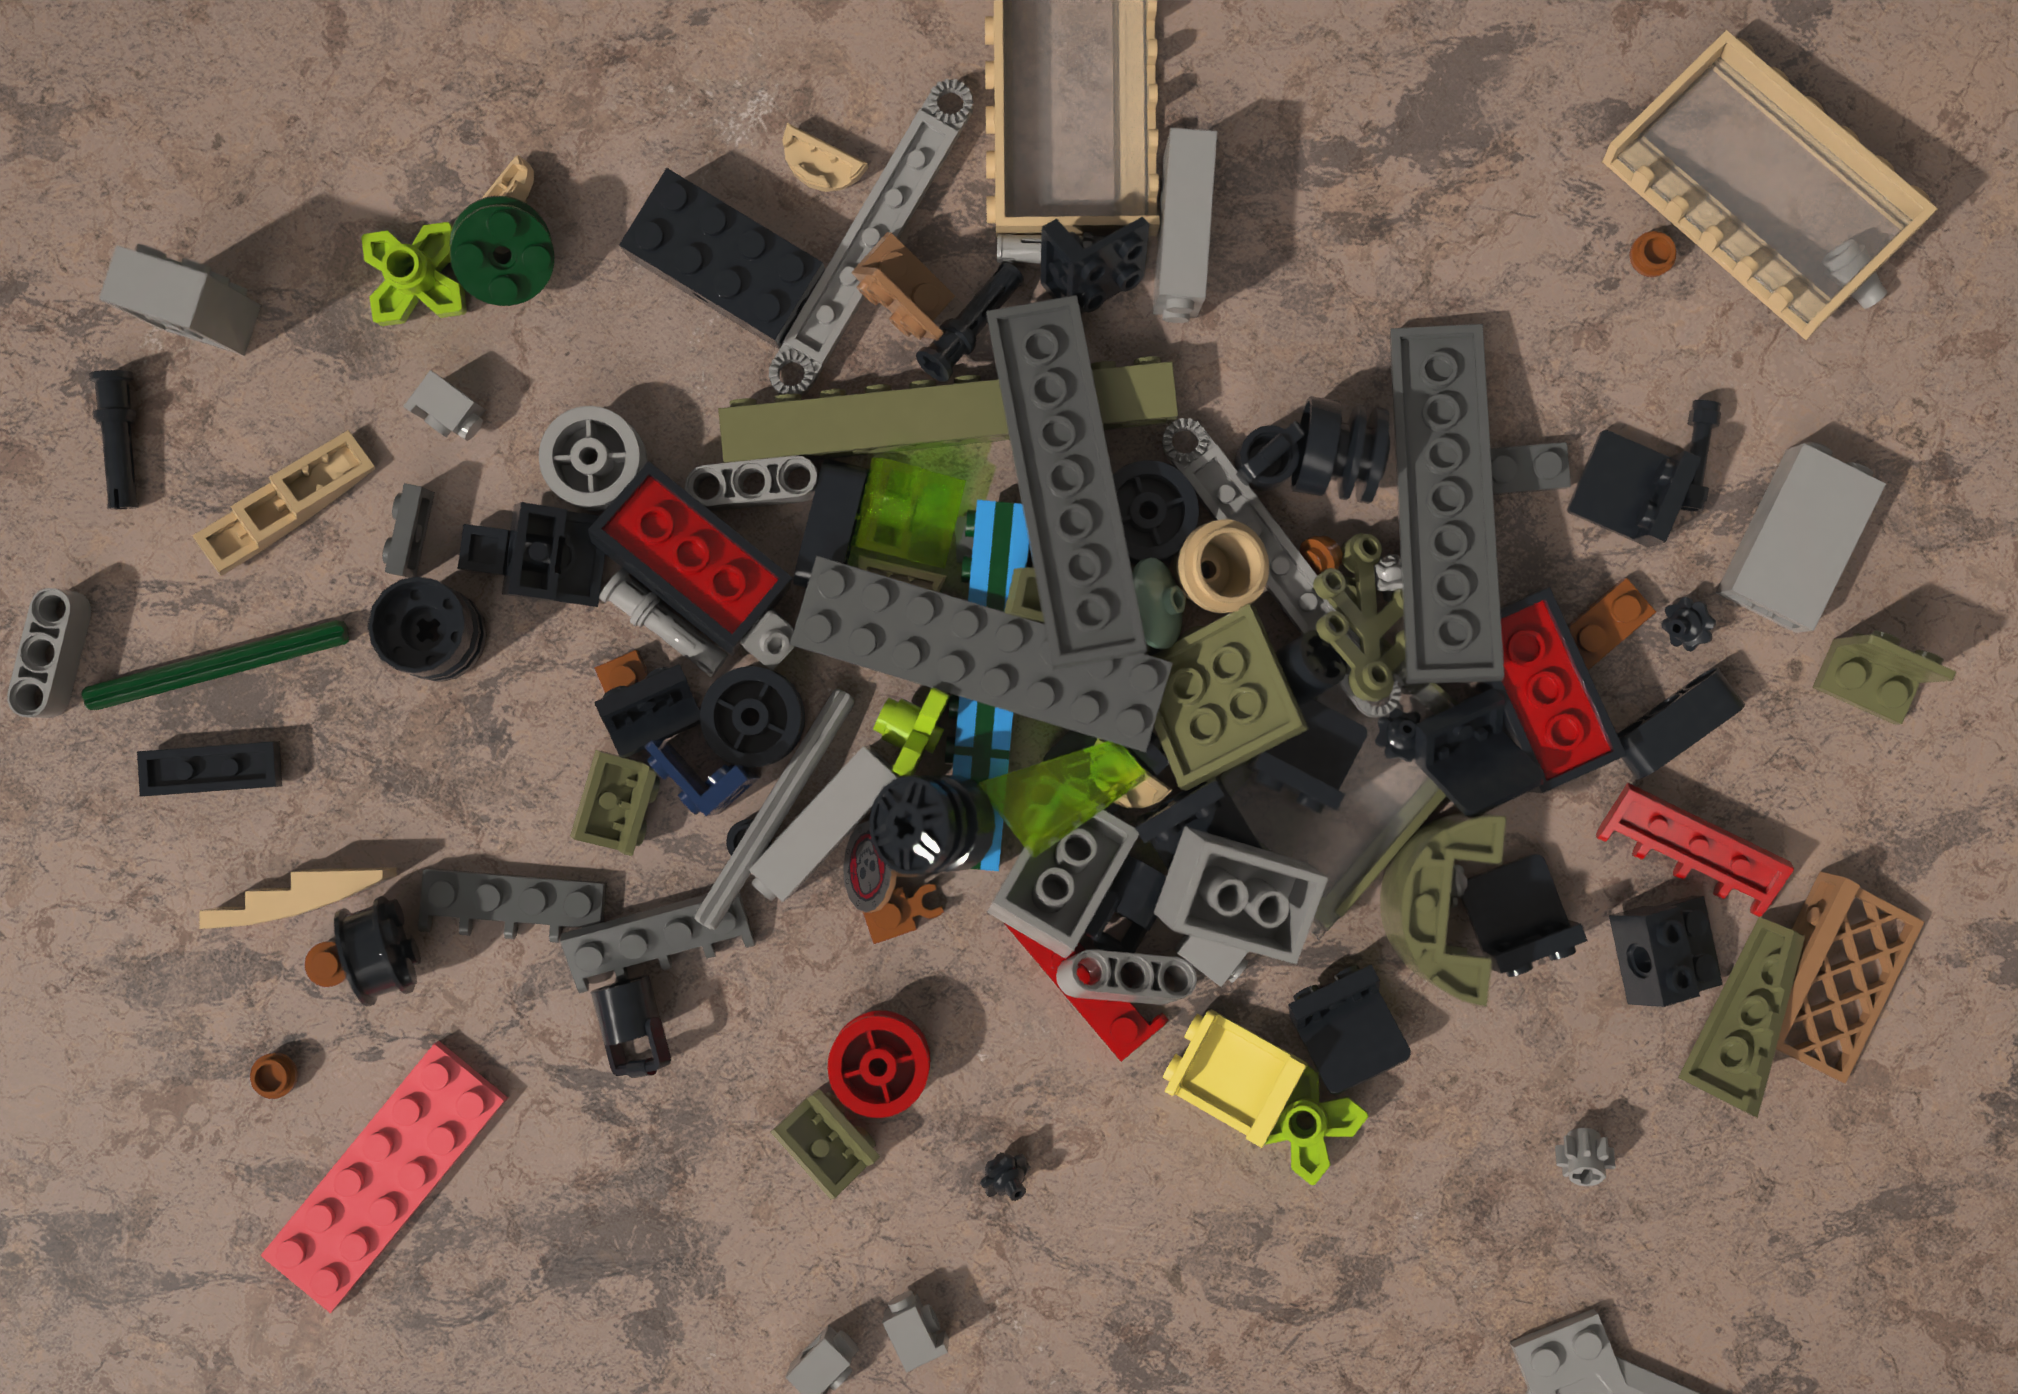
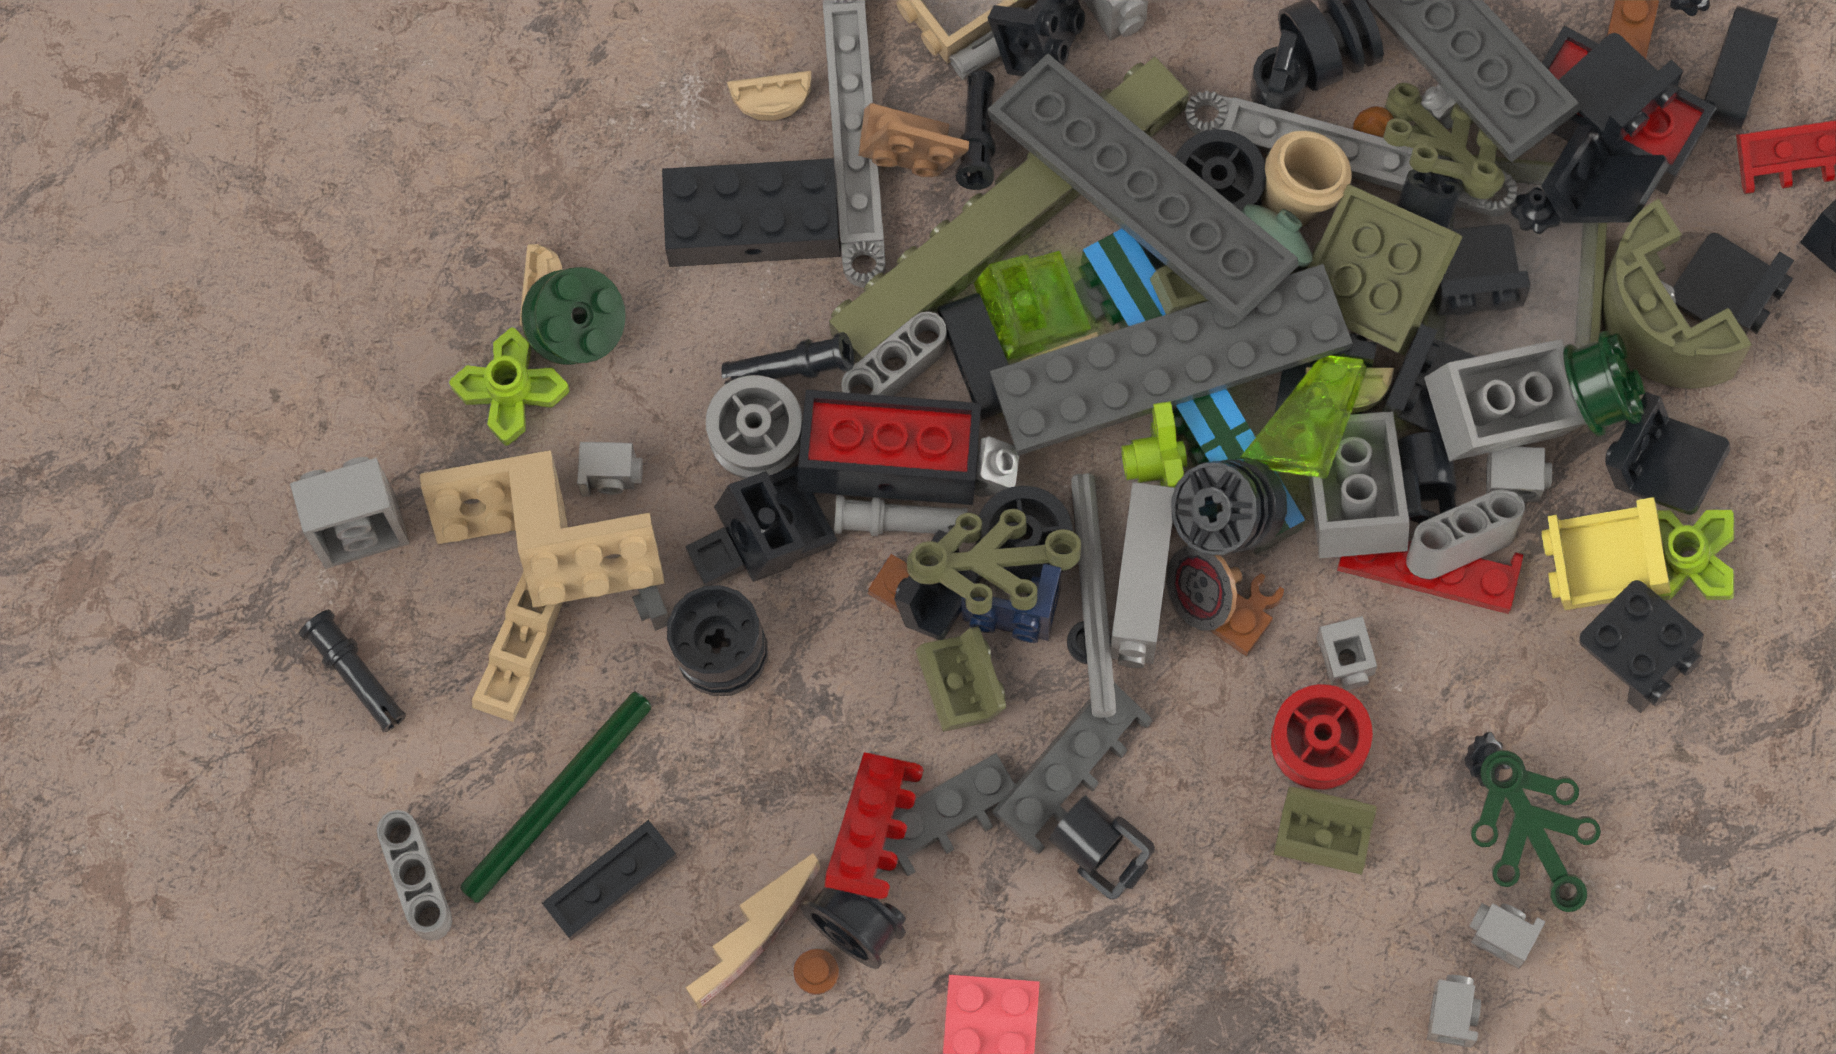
camera: 30 degrees left, 15 degrees down
(336, 430) = (555, 558): none -> tan bracket
(437, 882) = (869, 823): none -> red hinge
(674, 429) = (806, 359): none -> black pin
(690, 726) = (988, 559): none -> olive plant
(966, 989) = (1350, 638): none -> light grey brick
(1000, 1261) = (1530, 822): none -> dark green plant
(1206, 1173) = (1643, 643): none -> black bracket
(1336, 940) = (1603, 382): none -> dark green wheel
(1552, 683) = (1620, 87): none -> black bracket

